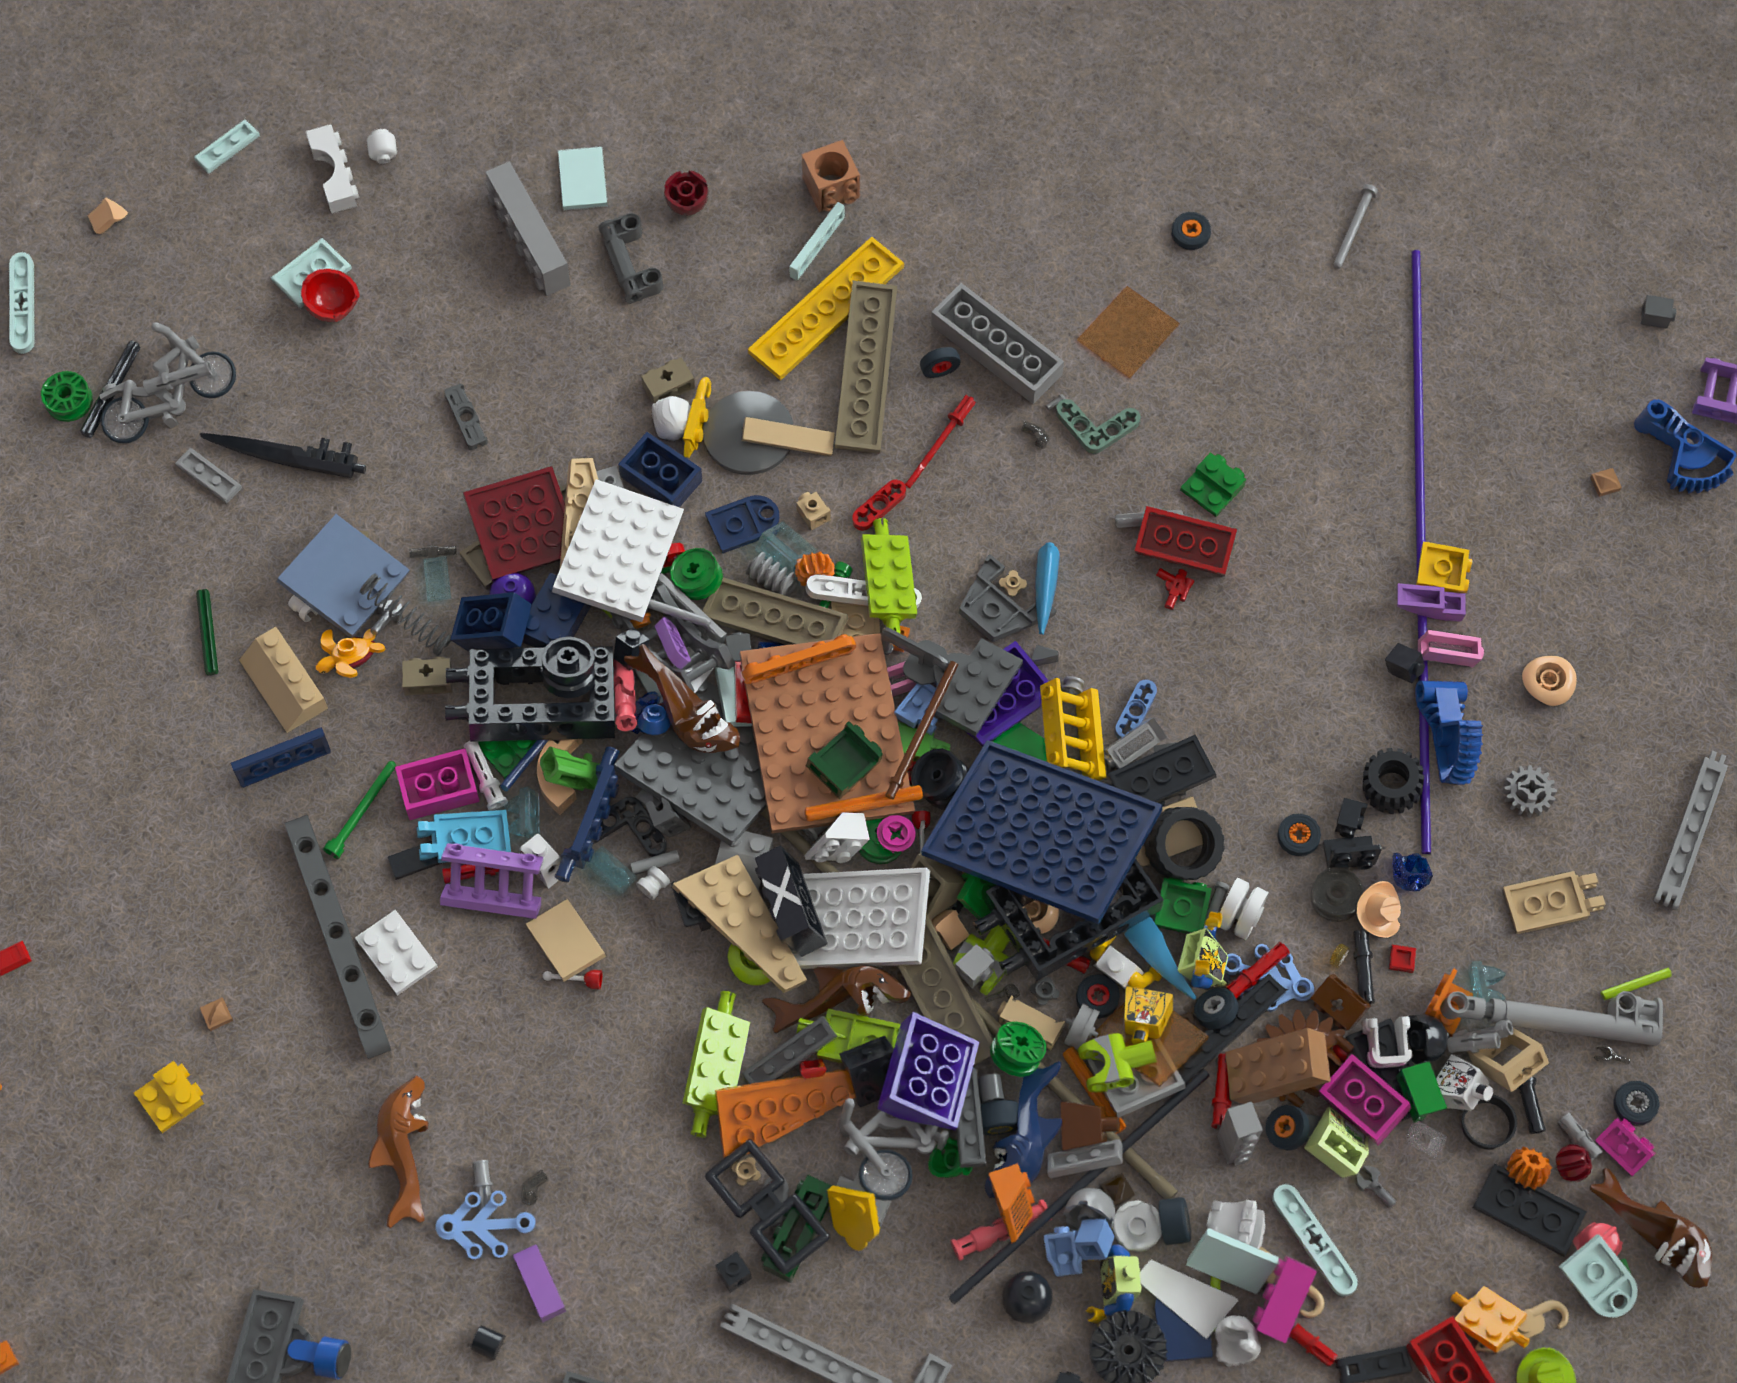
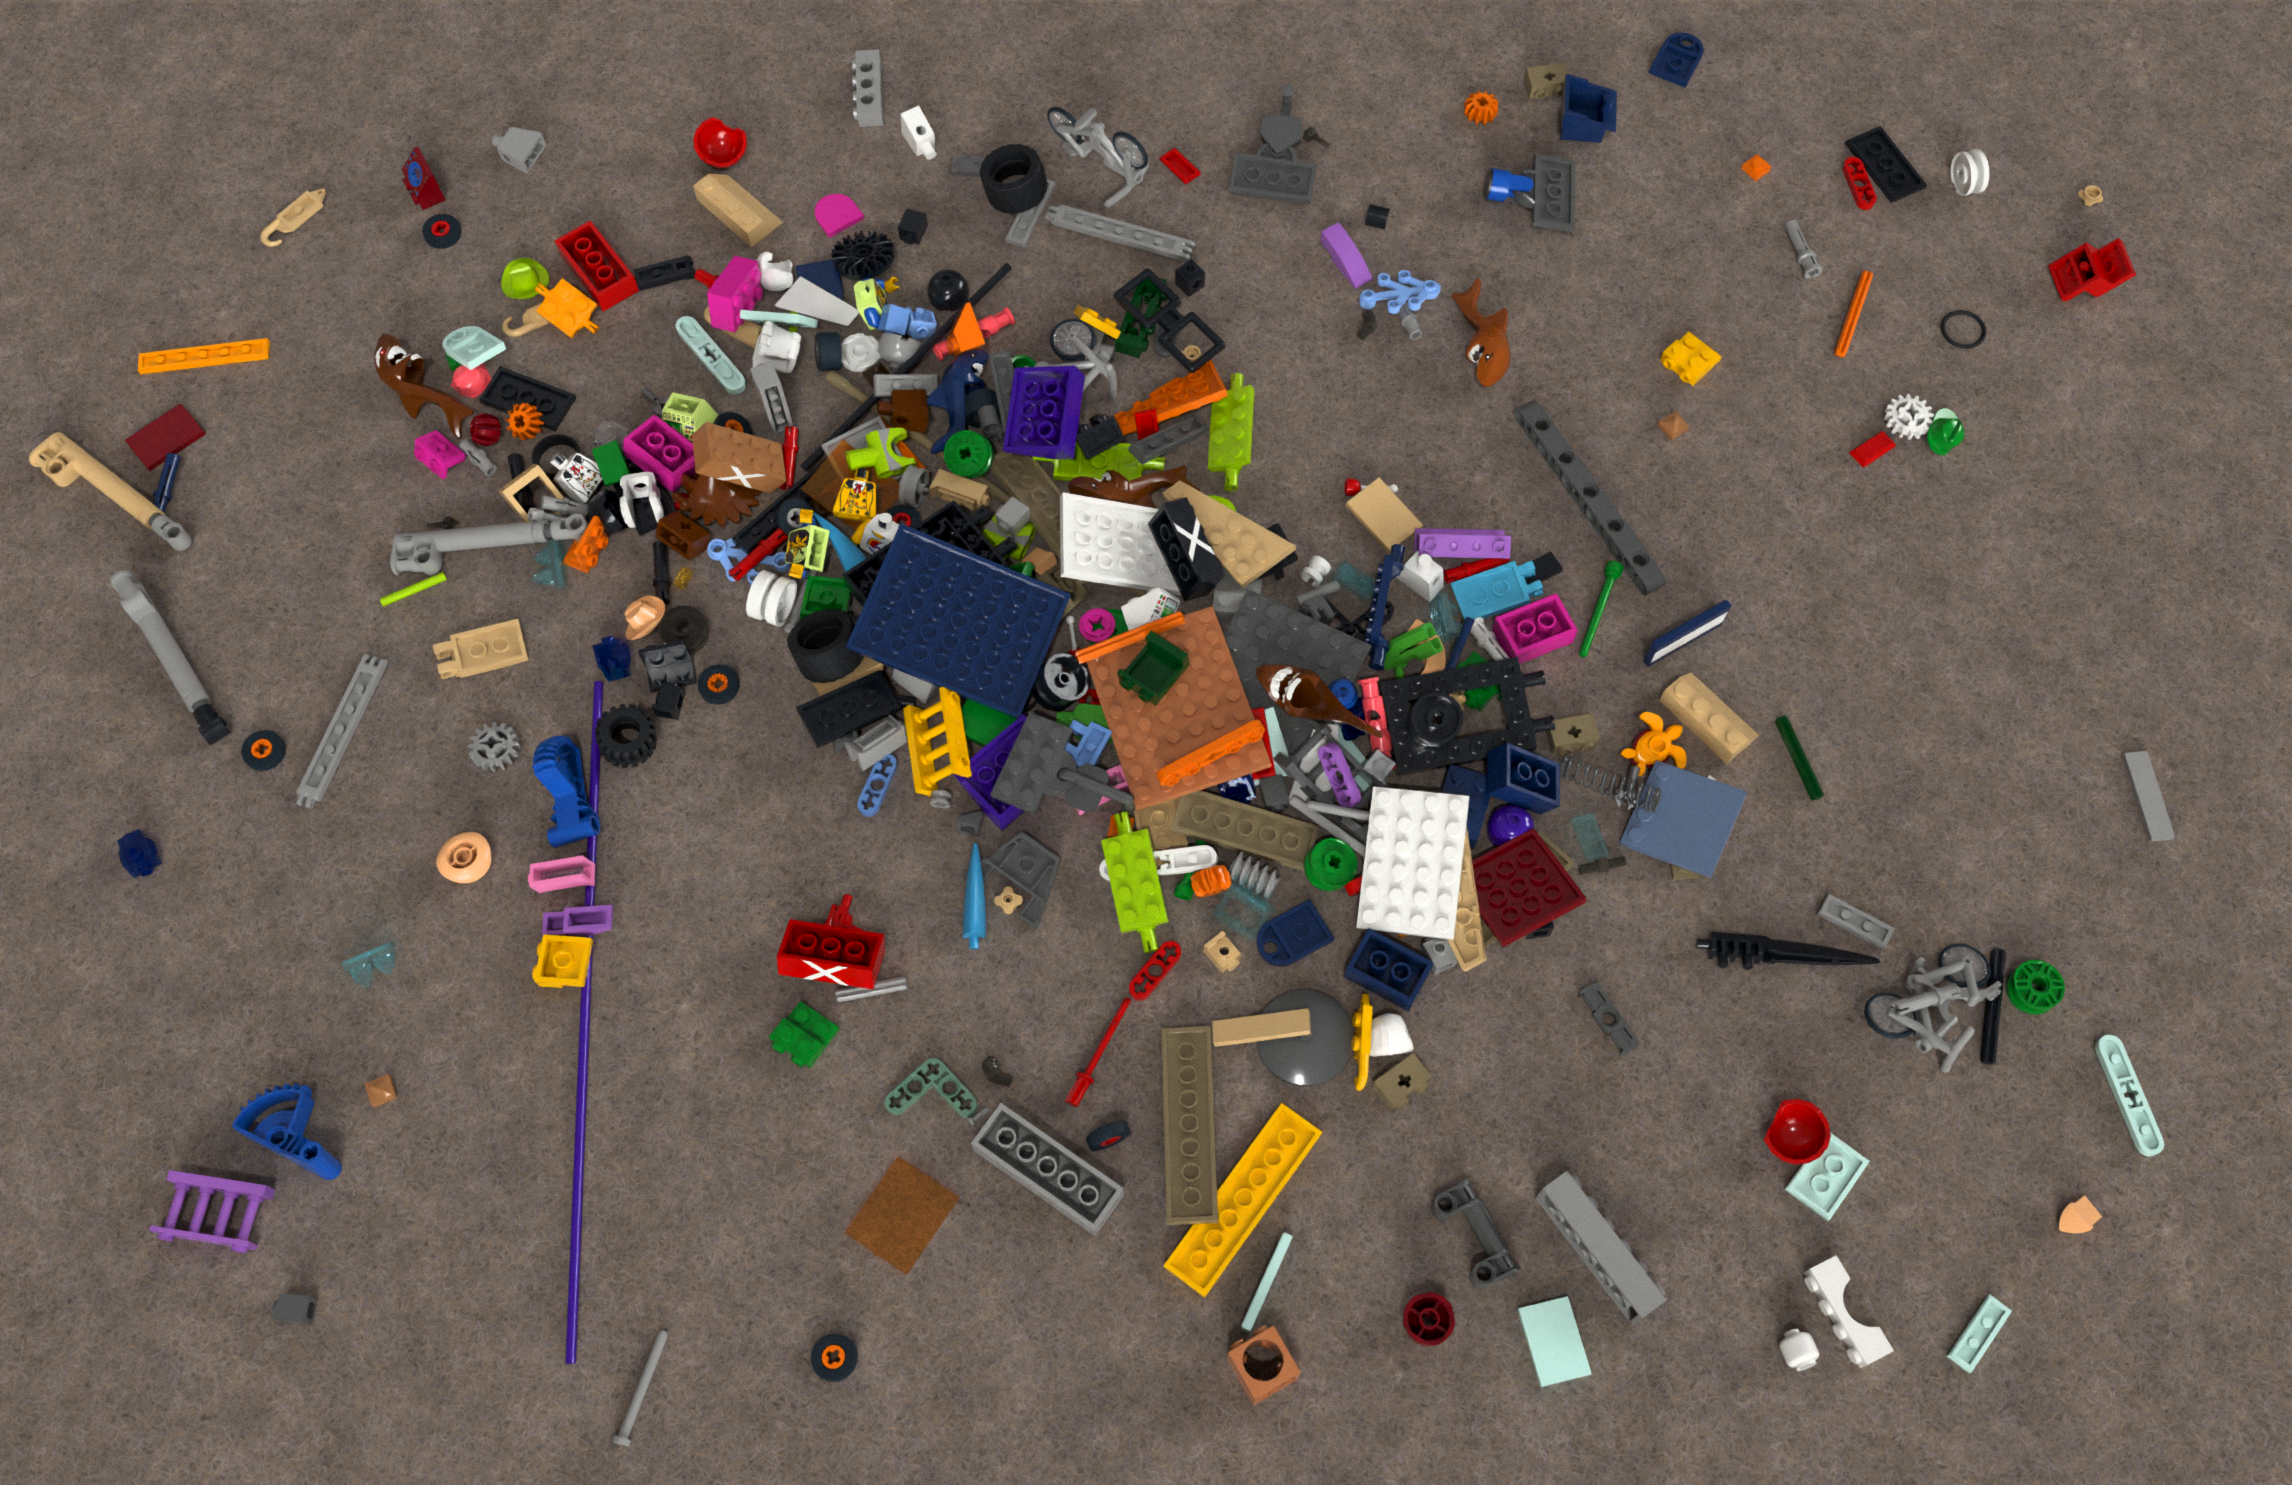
camera: 175 degrees right, 0 degrees up
(396, 952) = (1532, 492): white plate -> none
(897, 781) = (1100, 653): reddish brown bar -> none
(1402, 958) = (625, 586): red tile -> none
(1405, 663) = (607, 855): black brick -> none
(1634, 596) = (360, 968): none -> clear light blue tile
(1642, 1092) = (415, 487): black bush -> none

